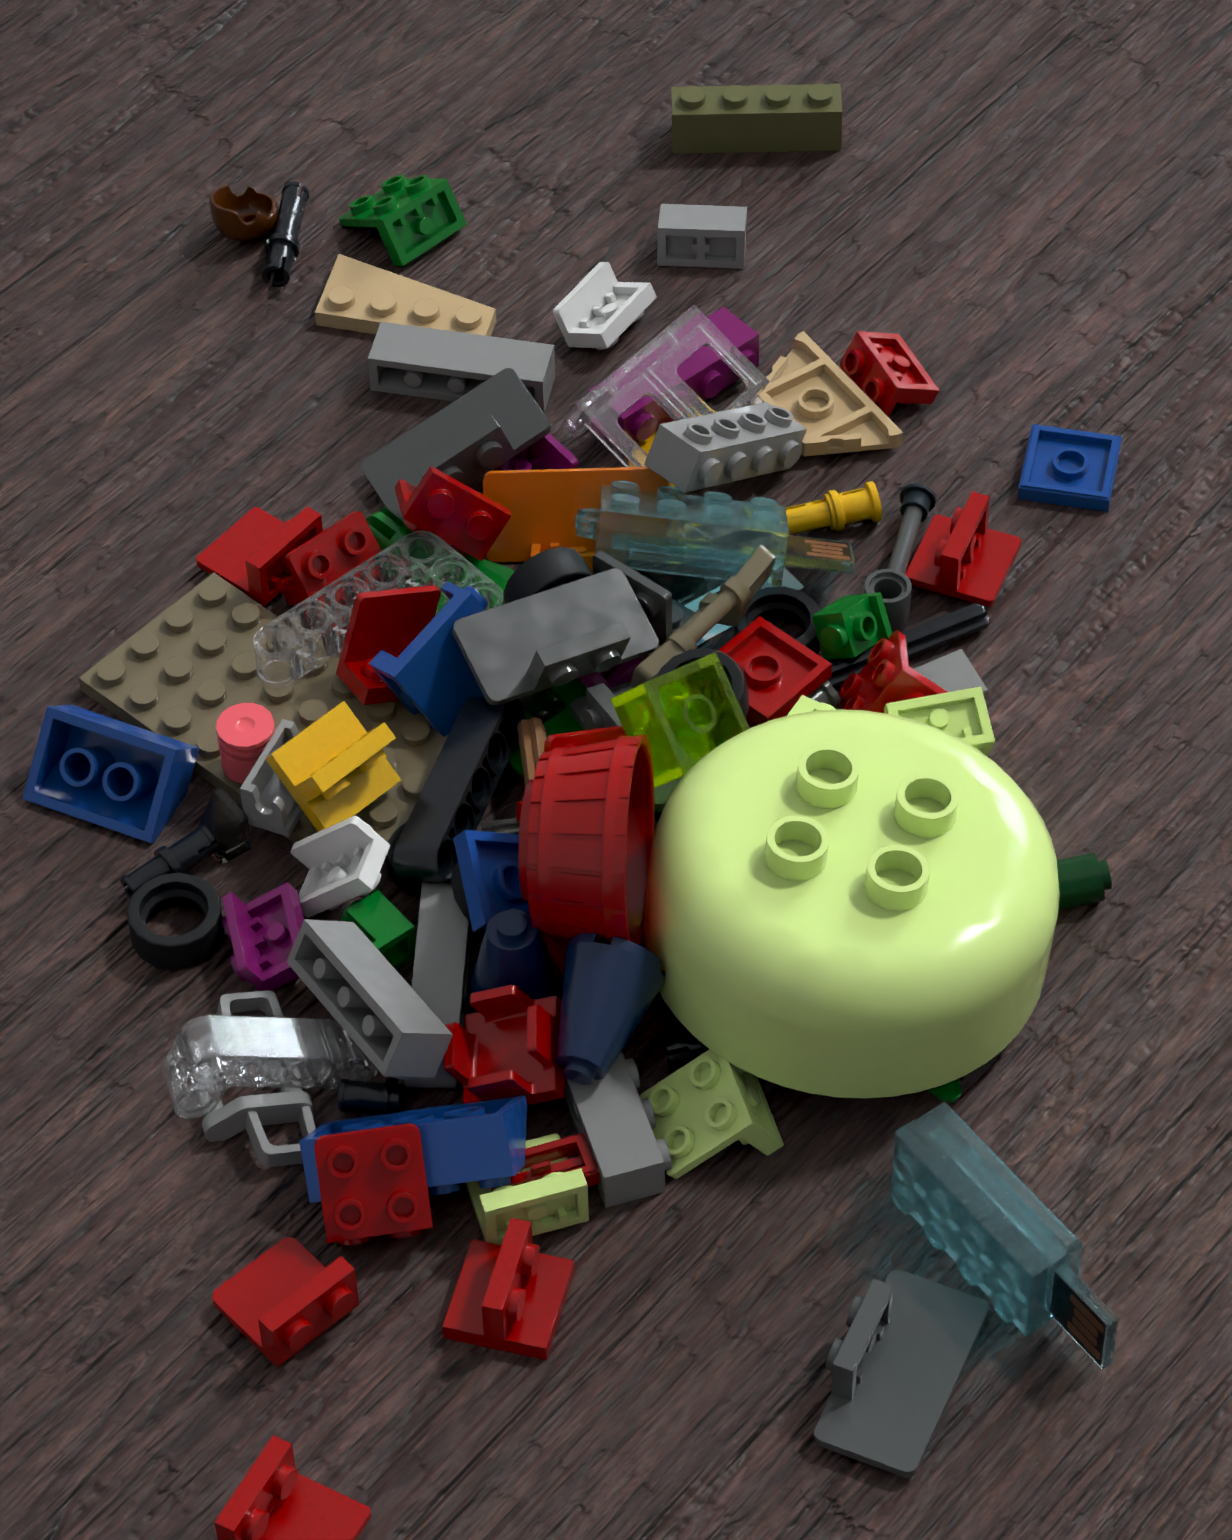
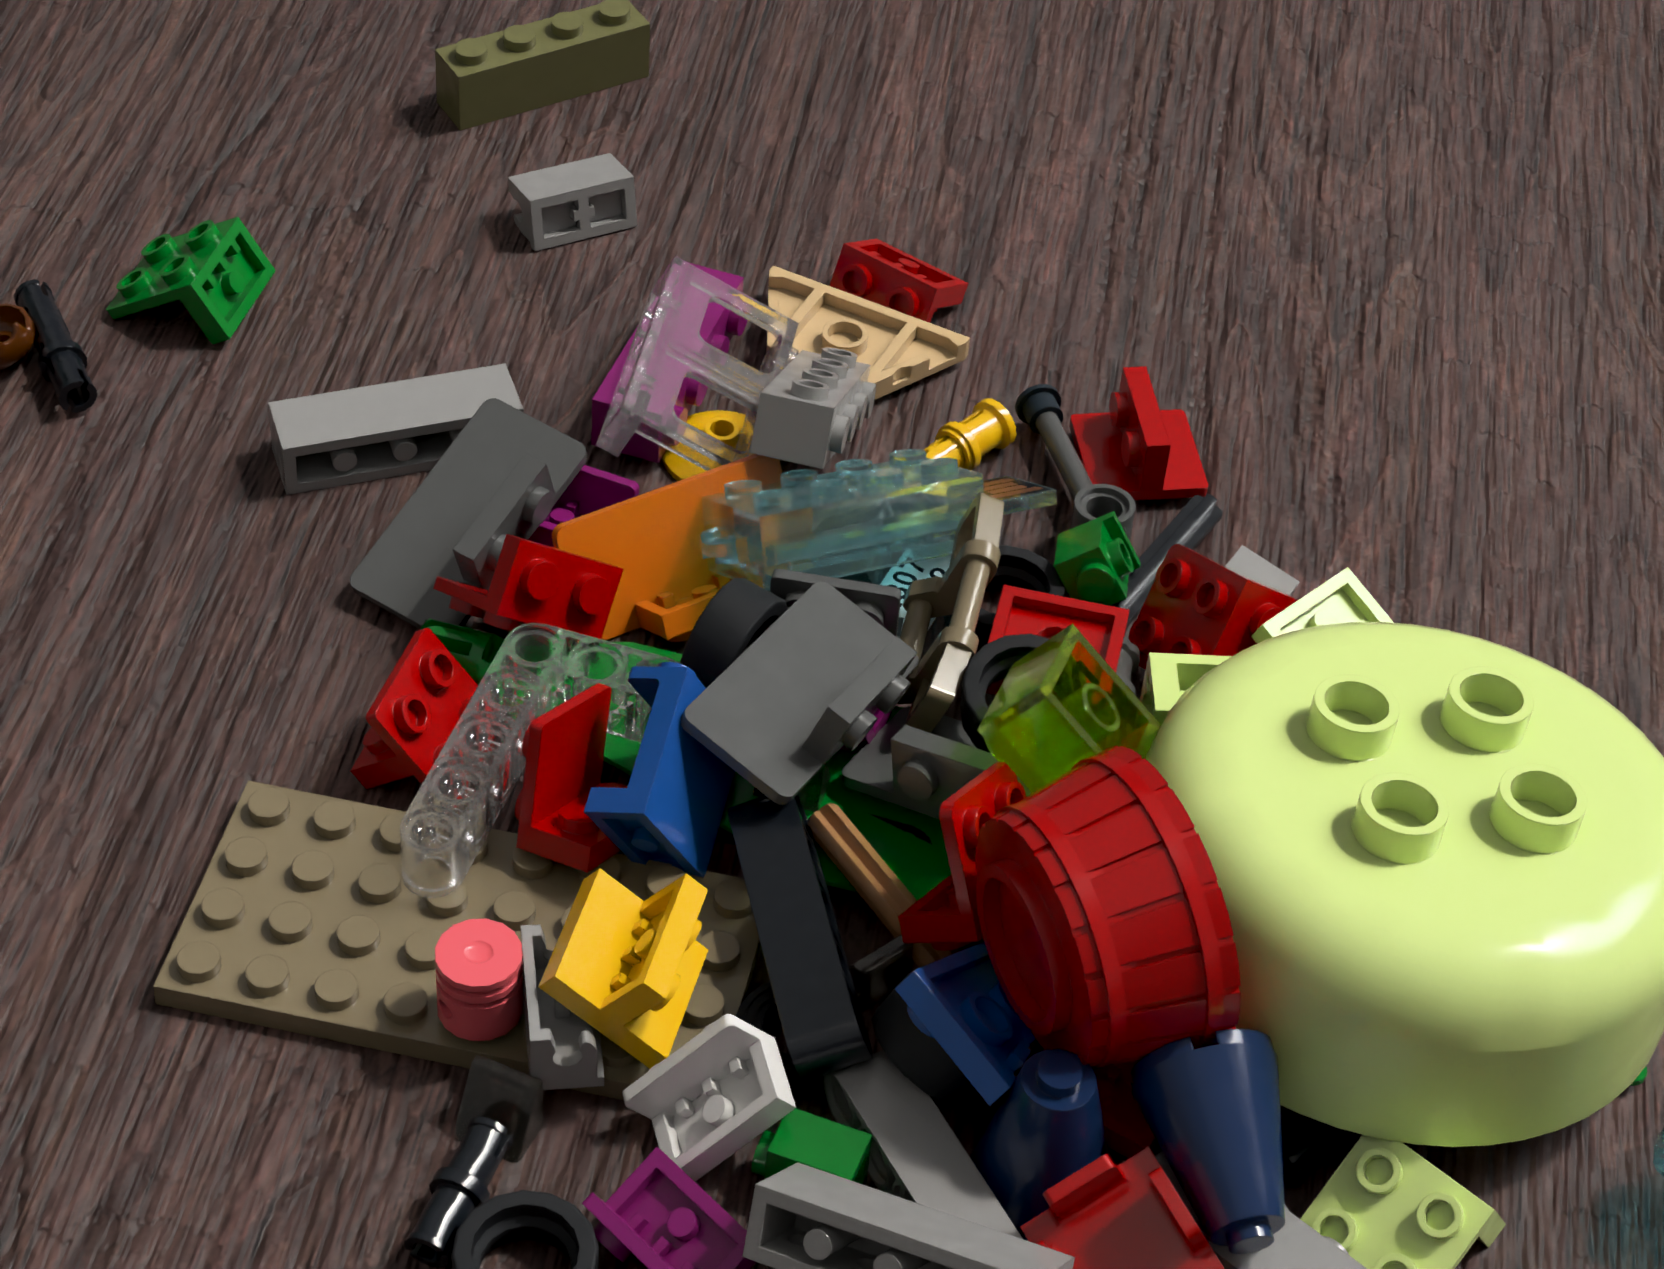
camera: 35 degrees left, 5 degrees down
(109, 772) = (287, 1099): blue slope -> none
(255, 551) = (298, 733): red bracket -> none
(365, 295) = (230, 388): tan wing -> none
(601, 308) = (520, 315): white bracket -> none
(1069, 467) = (1164, 321): blue tile -> none

